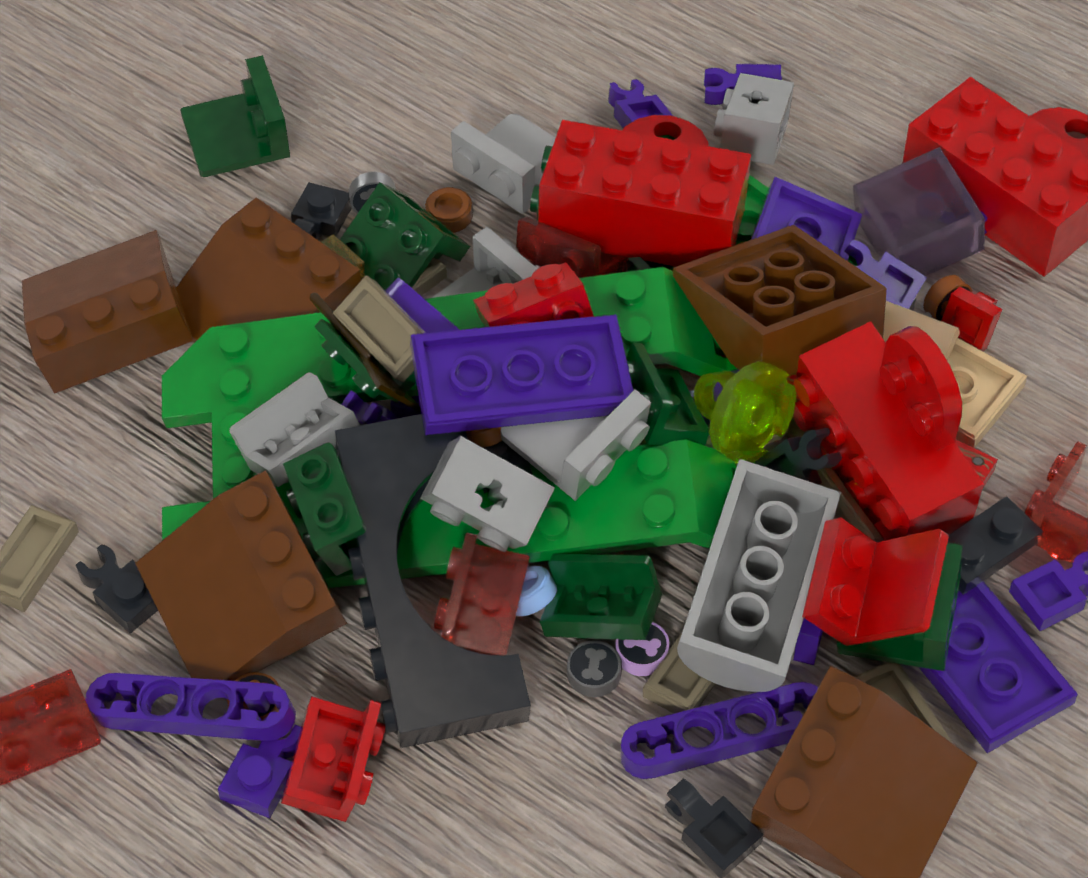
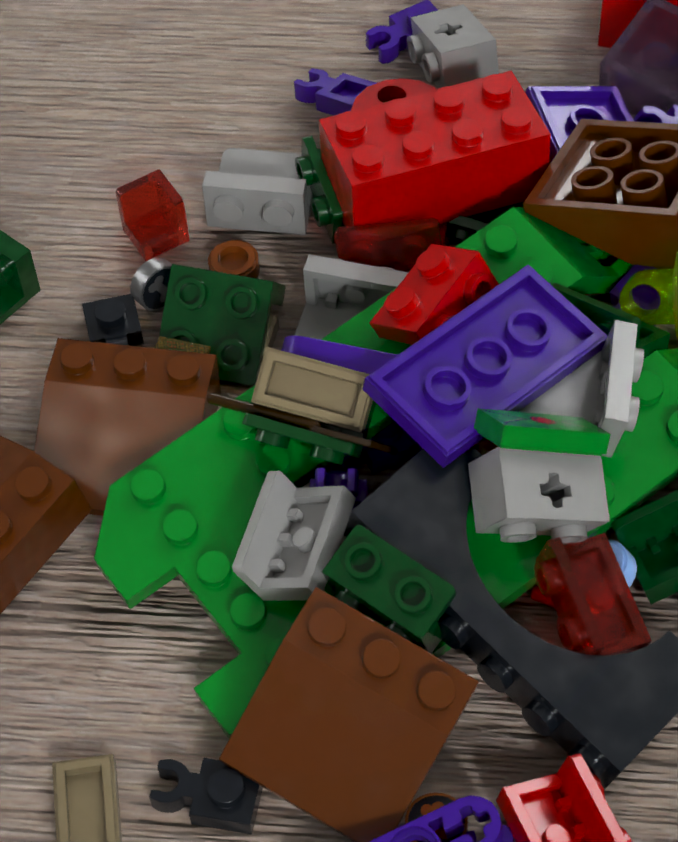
camera: 30 degrees left, 0 degrees up
(411, 138) = (152, 214): none -> clear red panel
(511, 445) = (541, 432): none -> green tile

